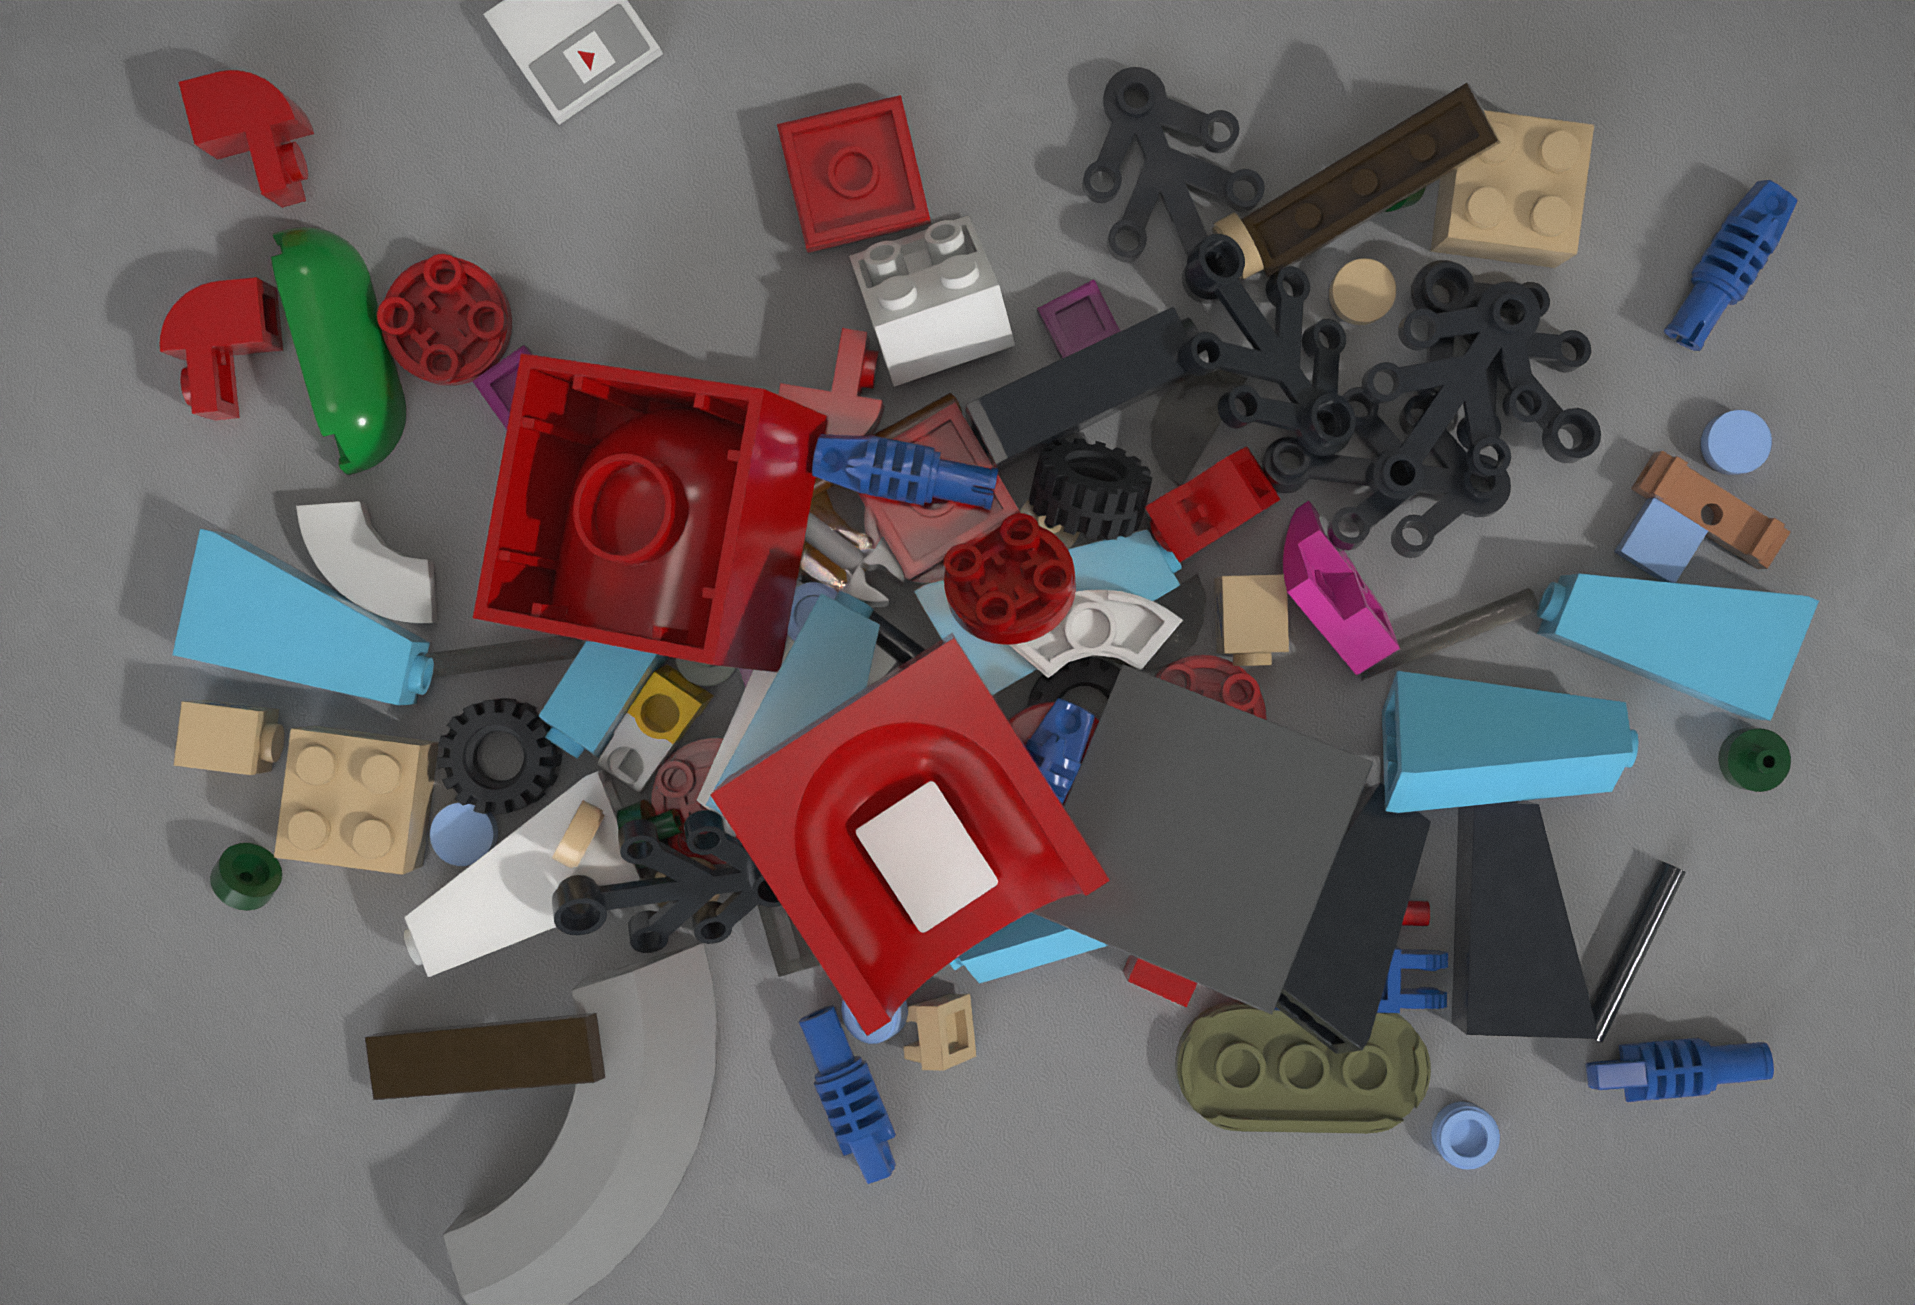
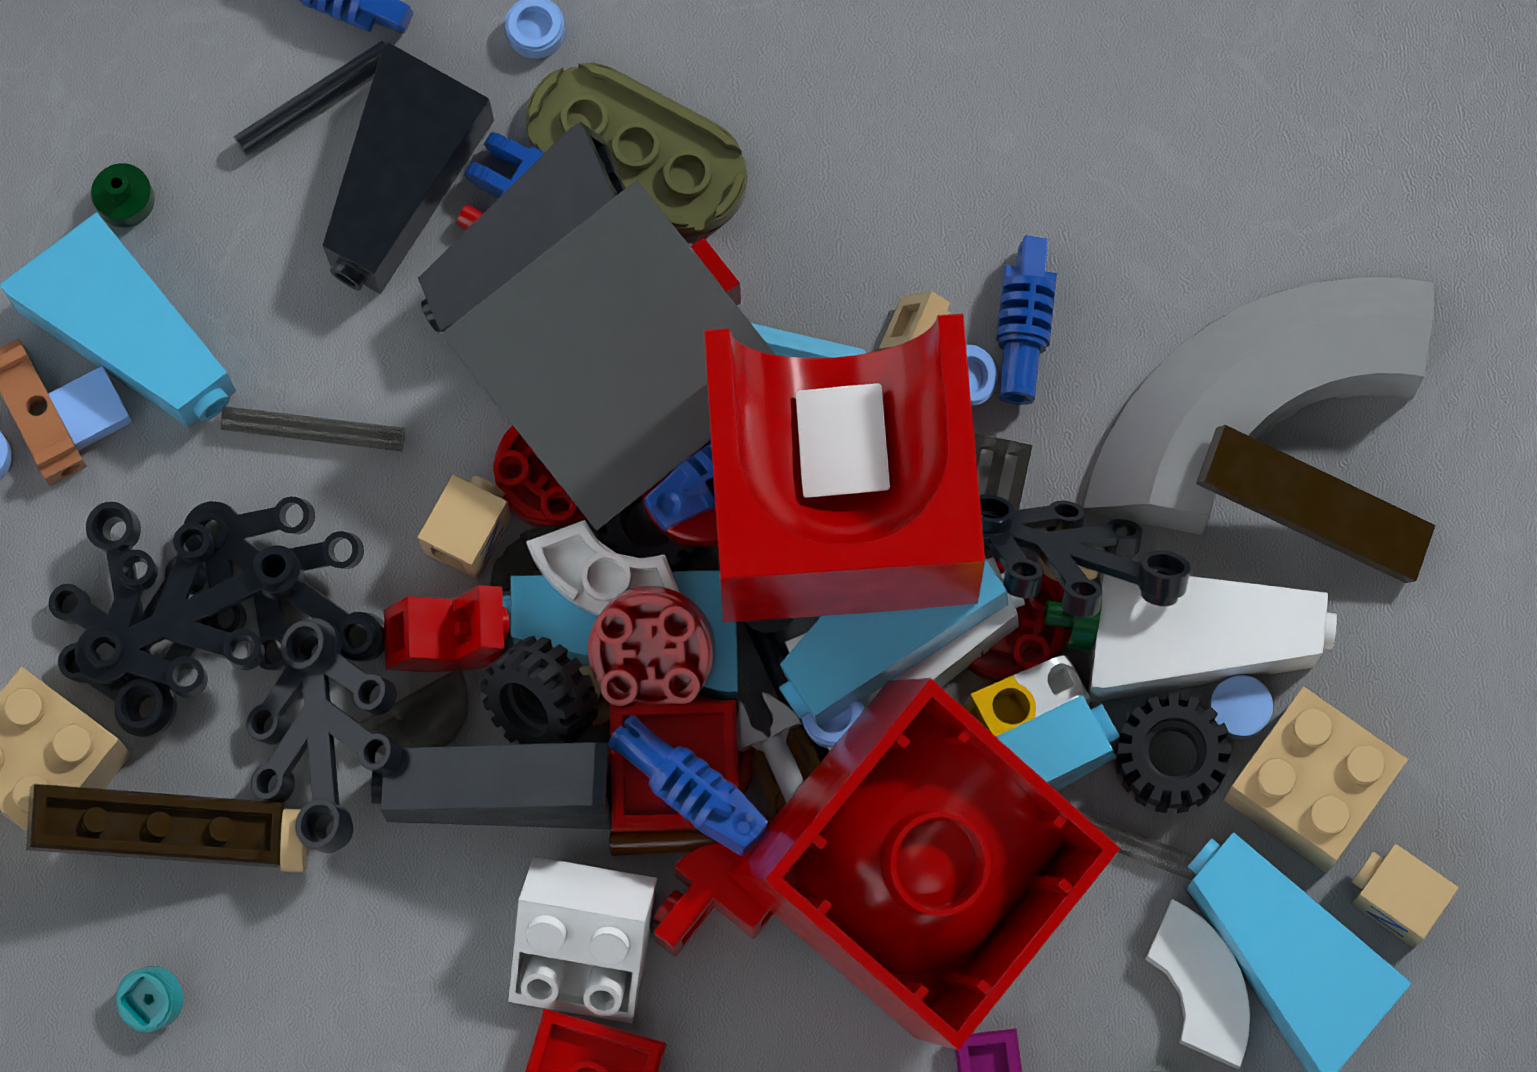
camera: 150 degrees left, 15 degrees down
(246, 876) = (1449, 767): dark green tile -> none
(578, 835) = (1132, 635): tan tile -> none
(1077, 319) = (466, 854): magenta tile -> none
(1164, 167) = (316, 944): black plant -> none
(1283, 39) = (149, 998): none -> teal tile
(1334, 594) = (386, 506): dark pink slope -> none
(1362, 291) = (211, 747): tan tile -> none
(1497, 743) = (328, 313): medium azure slope -> none

